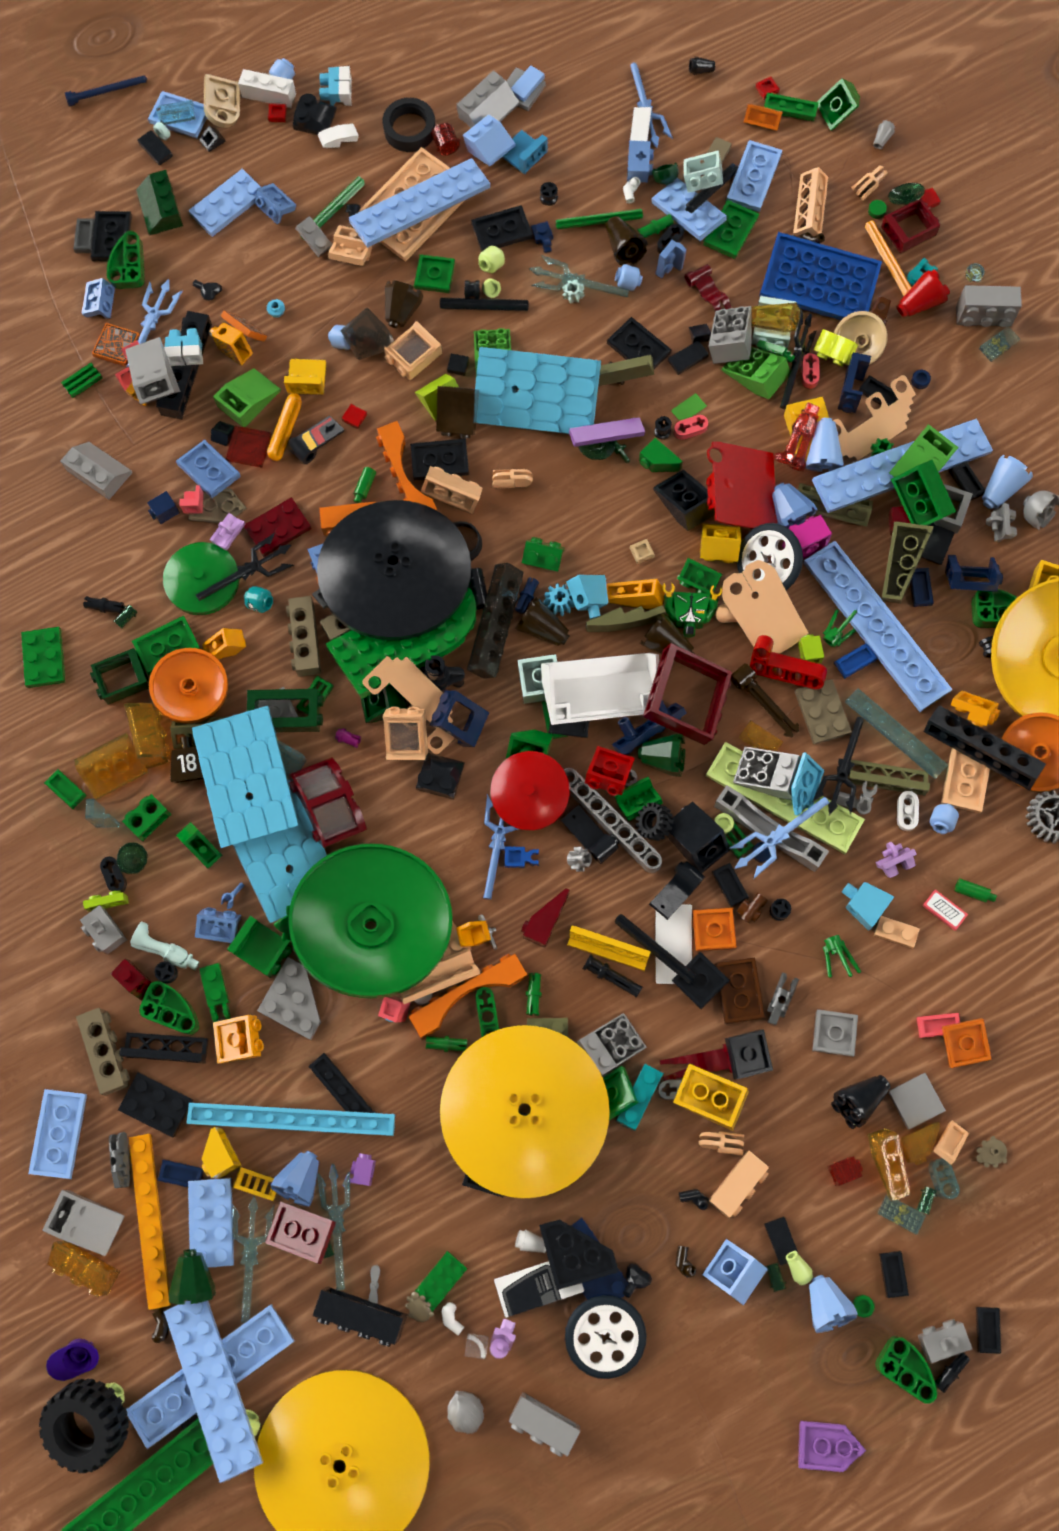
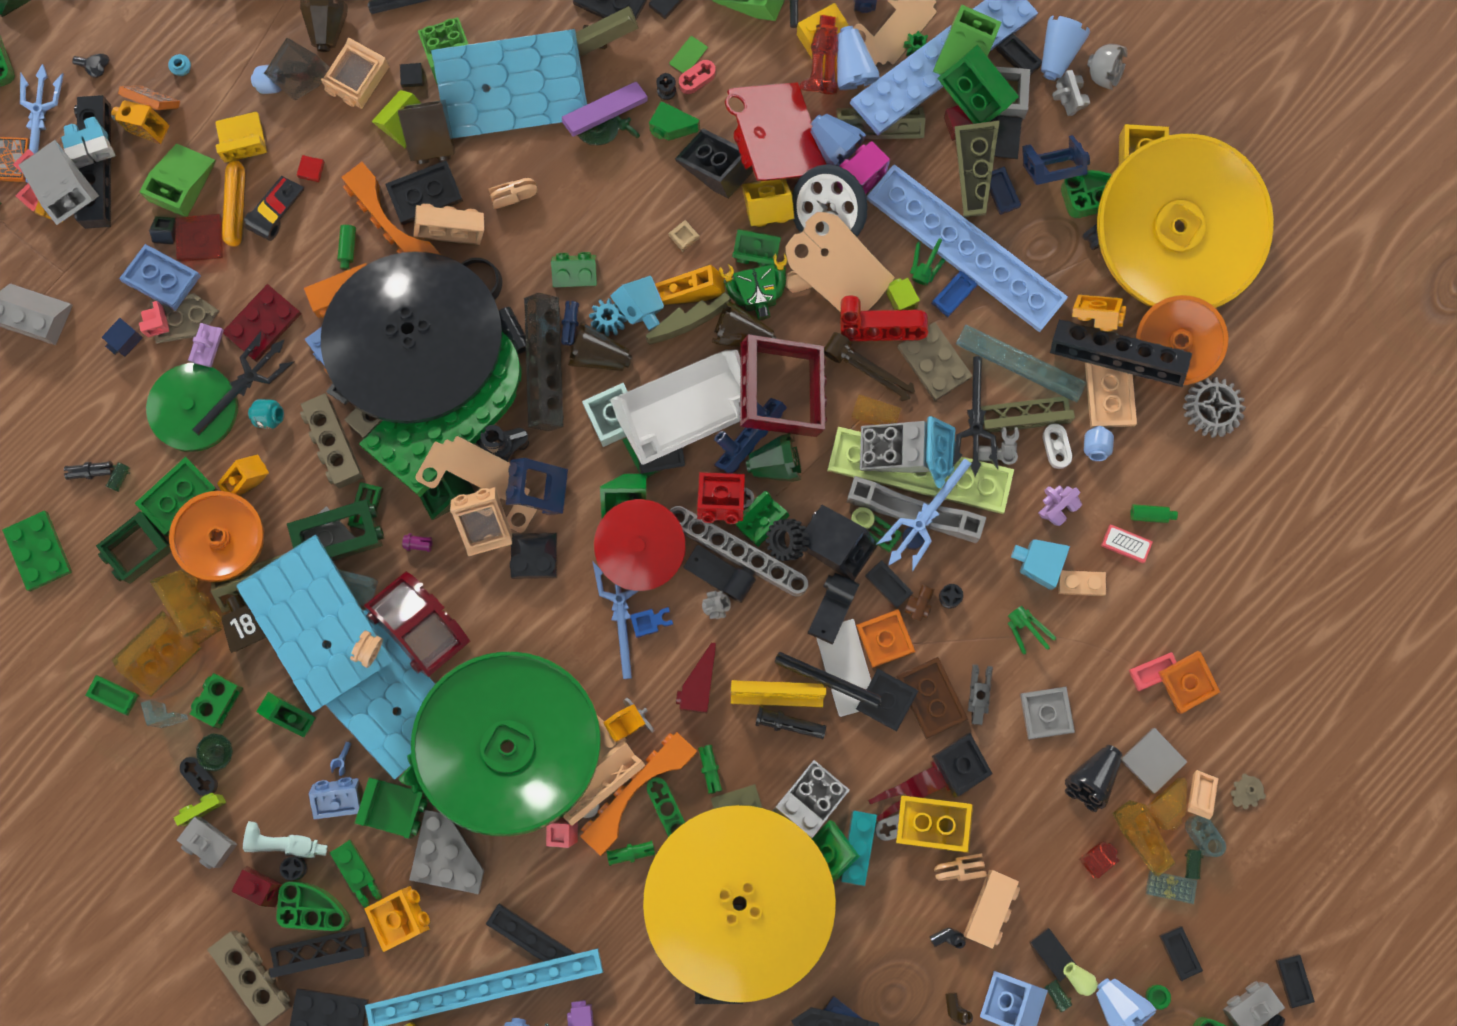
camera: 20 degrees left, 5 degrees up
(280, 807) = (366, 649): none -> light nougat wheel

